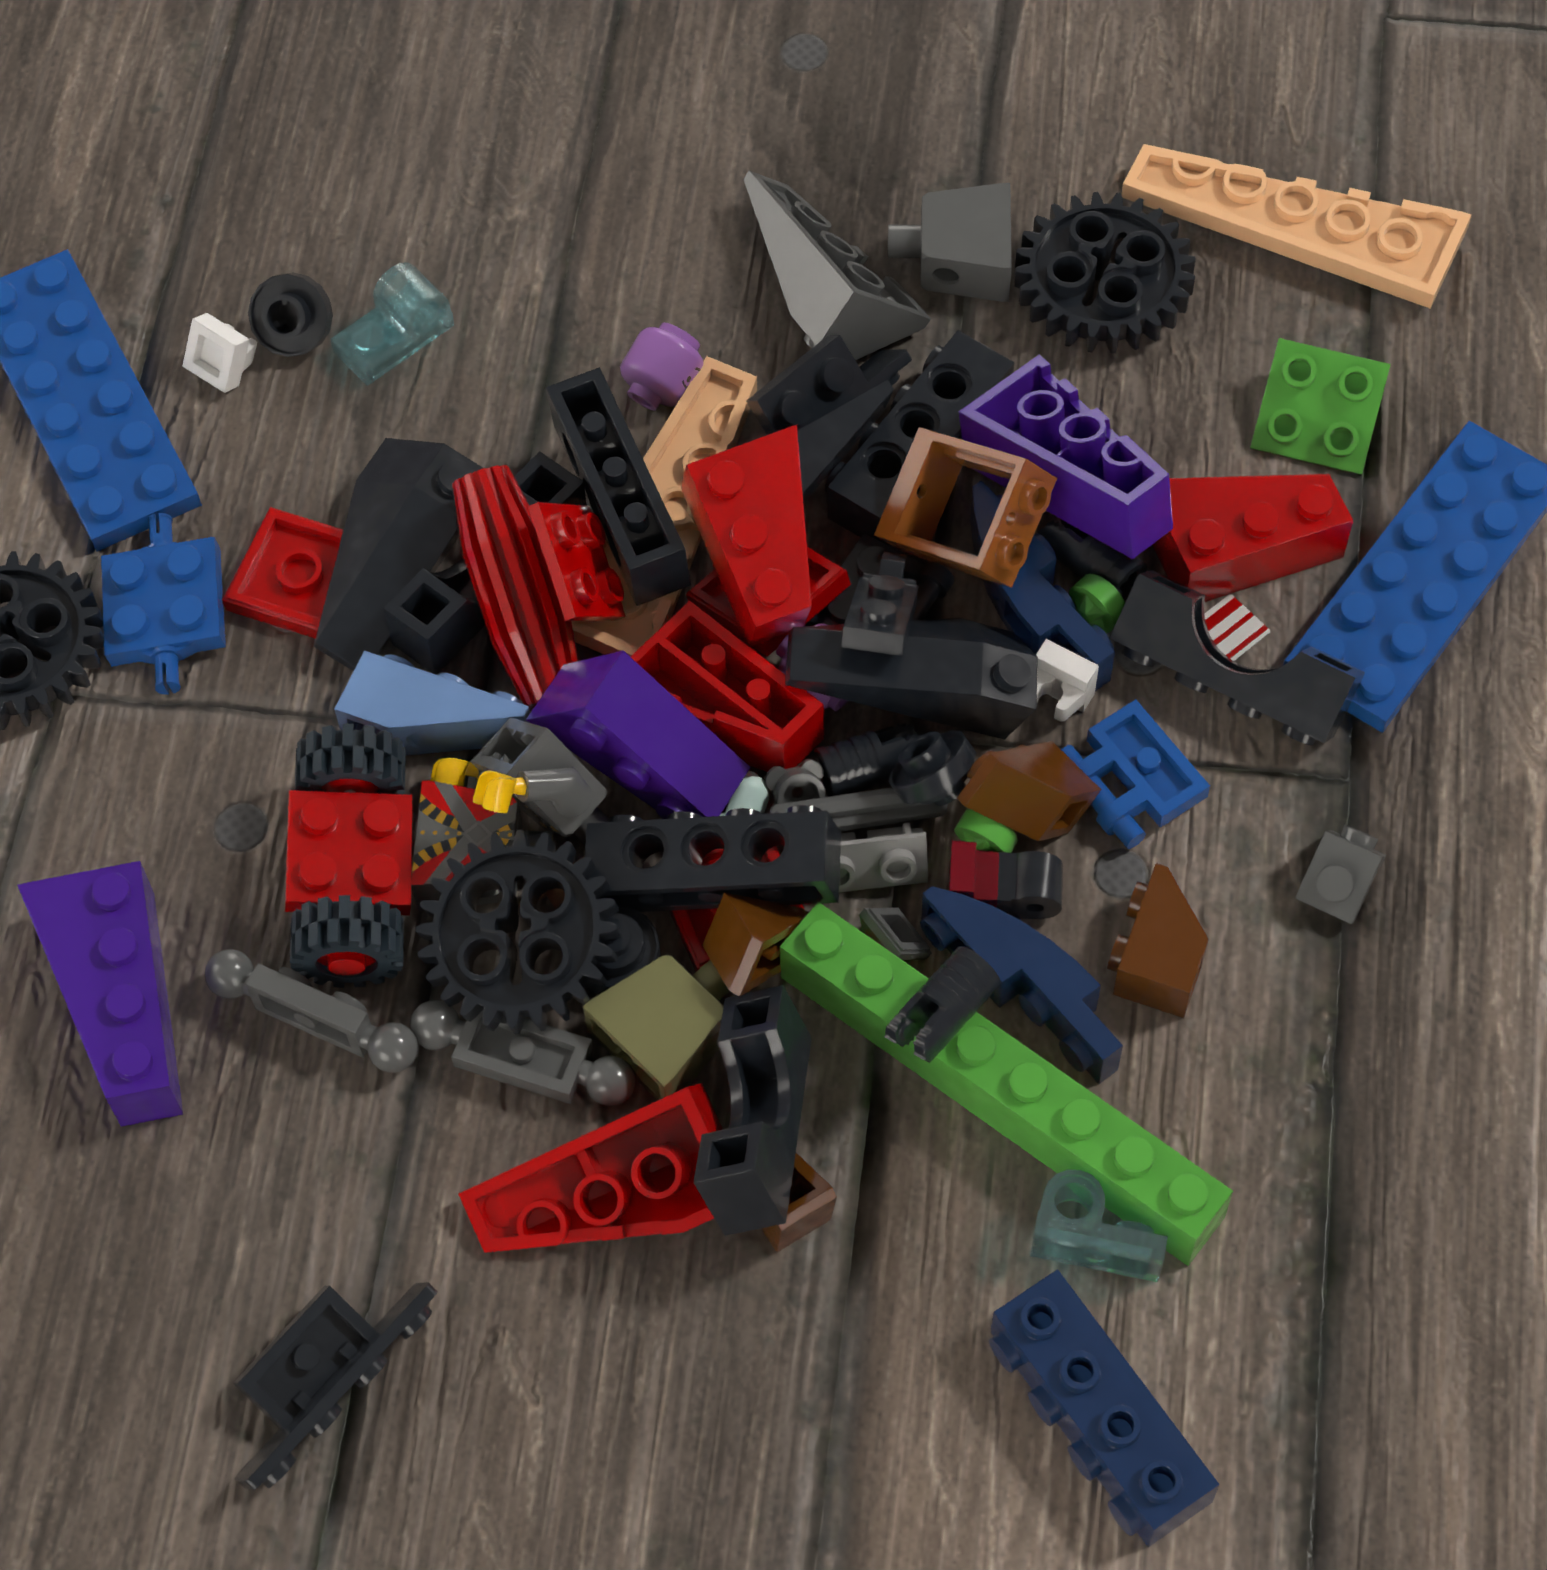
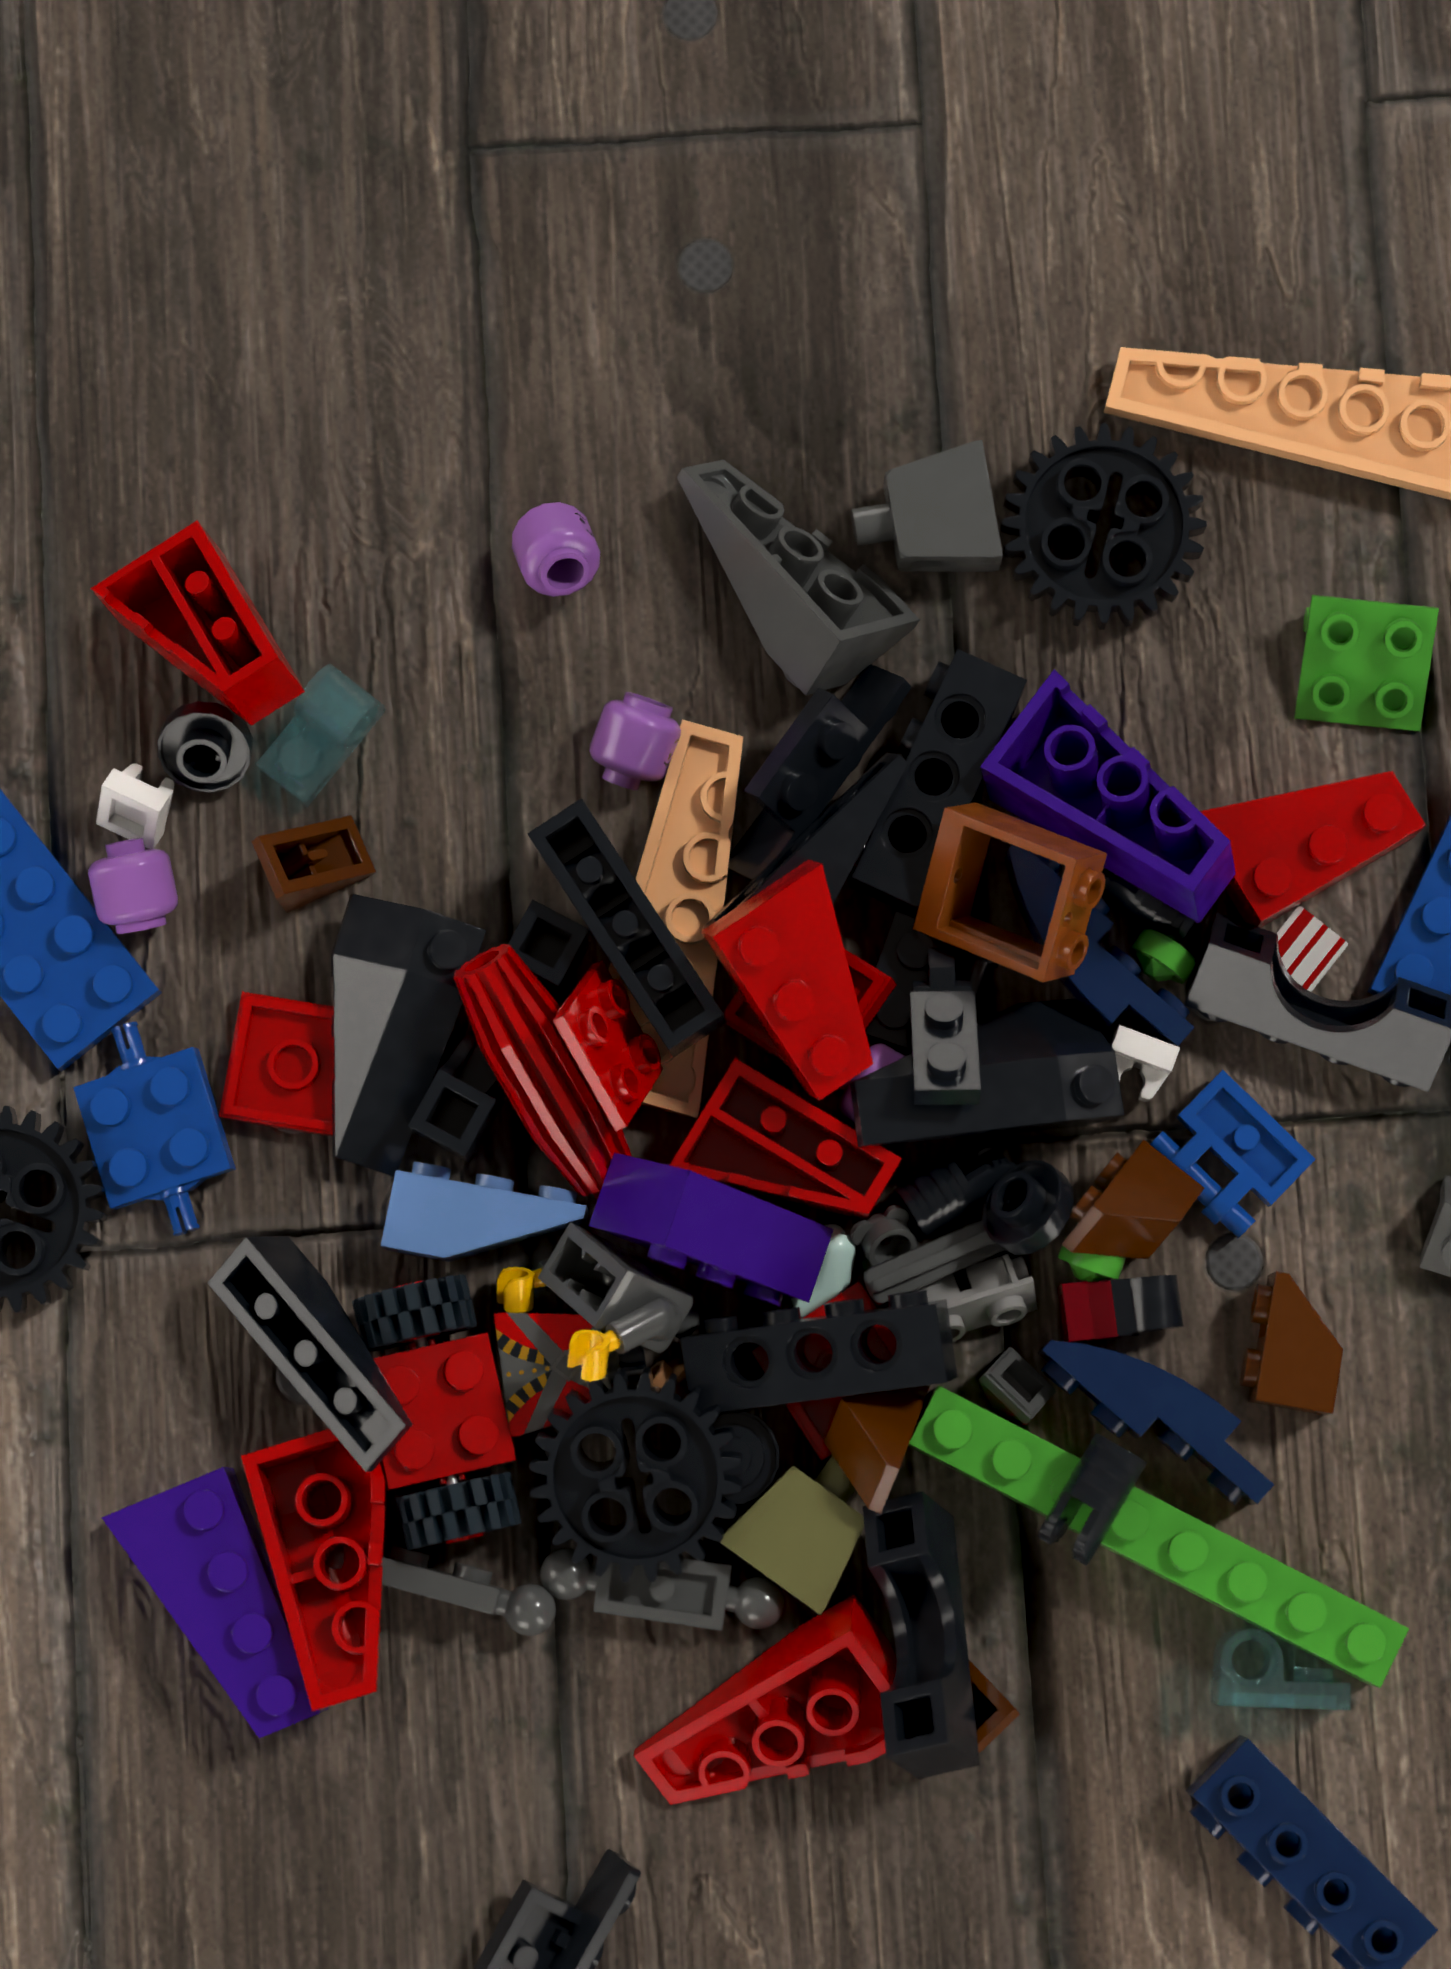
camera: 10 degrees left, 20 degrees up
(198, 409) = (133, 886): none -> medium lavender head
(212, 906) = (302, 1498): none -> red wedge
(247, 766) = (312, 1343): none -> black slope
(309, 215) = (202, 621): none -> red wedge
(355, 414) = (313, 860): none -> reddish brown slope
(630, 233) = (555, 549): none -> medium lavender head

